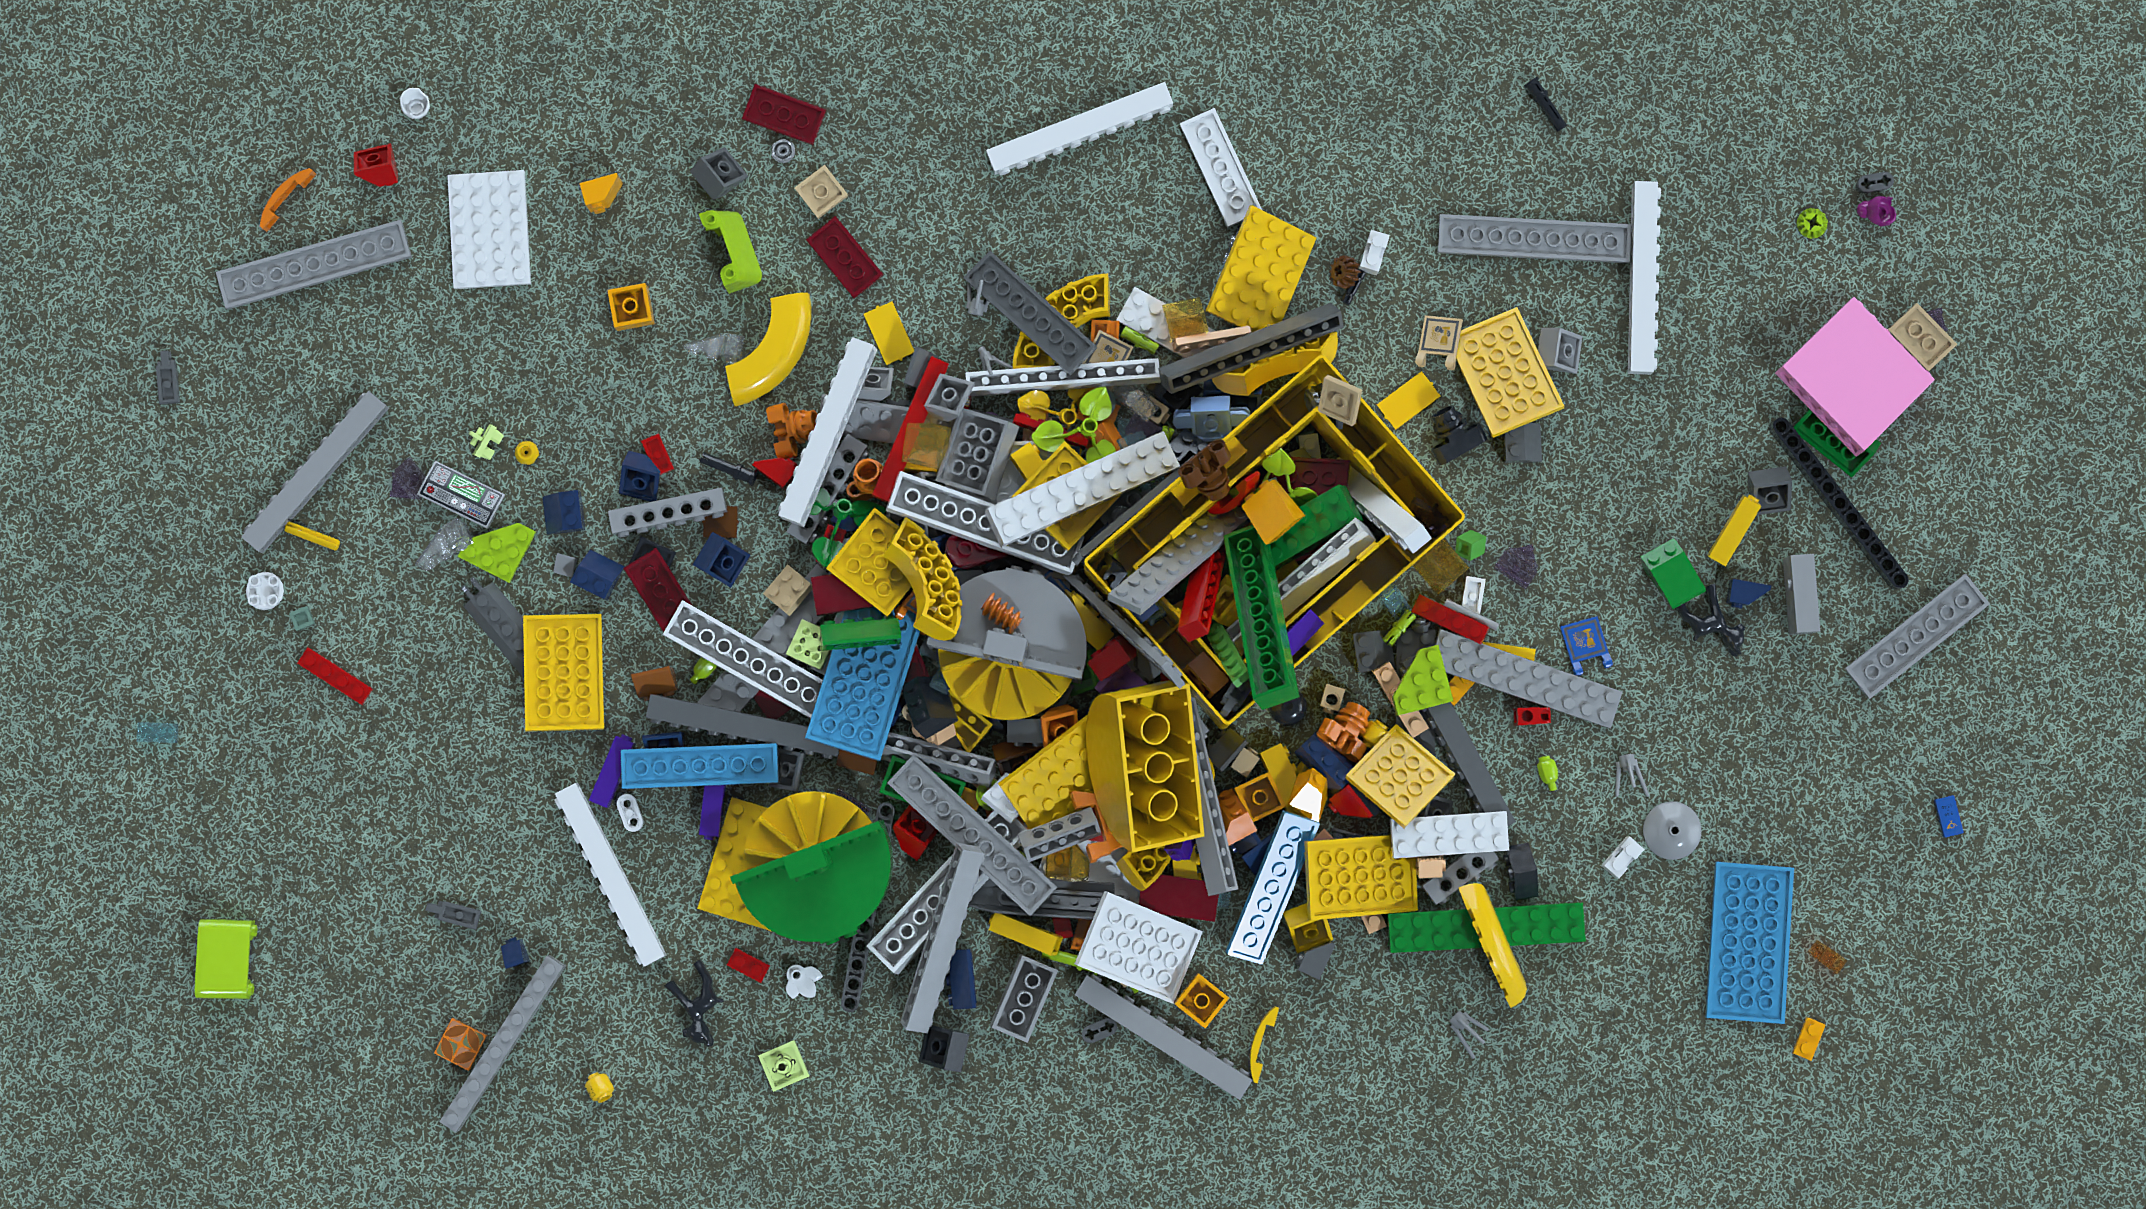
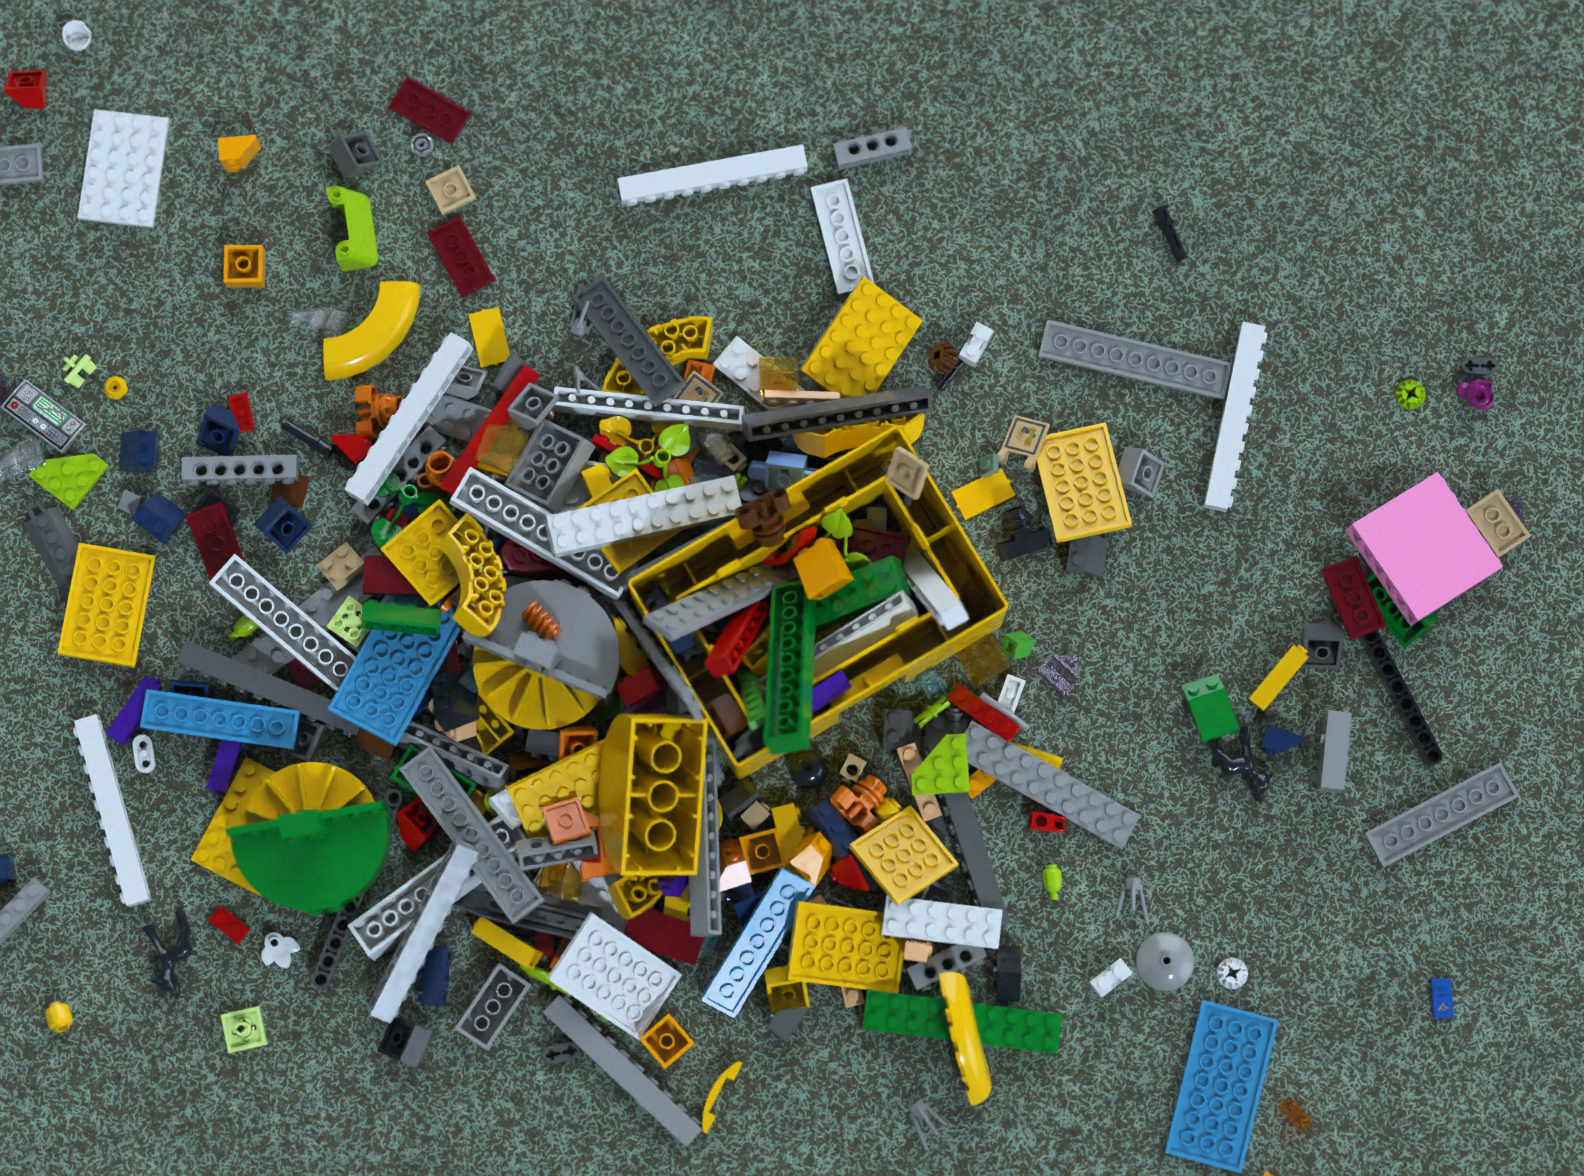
camera: 10 degrees right, 5 degrees down
(655, 682) = (198, 630): dark orange slope -> none
(1063, 805) = (565, 820): none -> orange tile
(1139, 340) = (731, 388): lime pin -> none
(1257, 54) = (897, 134): none -> light grey brick
(1409, 371) = (989, 465): none -> sand green plate
(1585, 641) = (1111, 760): blue flag -> none
(1730, 829) = (1230, 982): none -> white gear
(1794, 438) = (1353, 598): none -> dark red tile

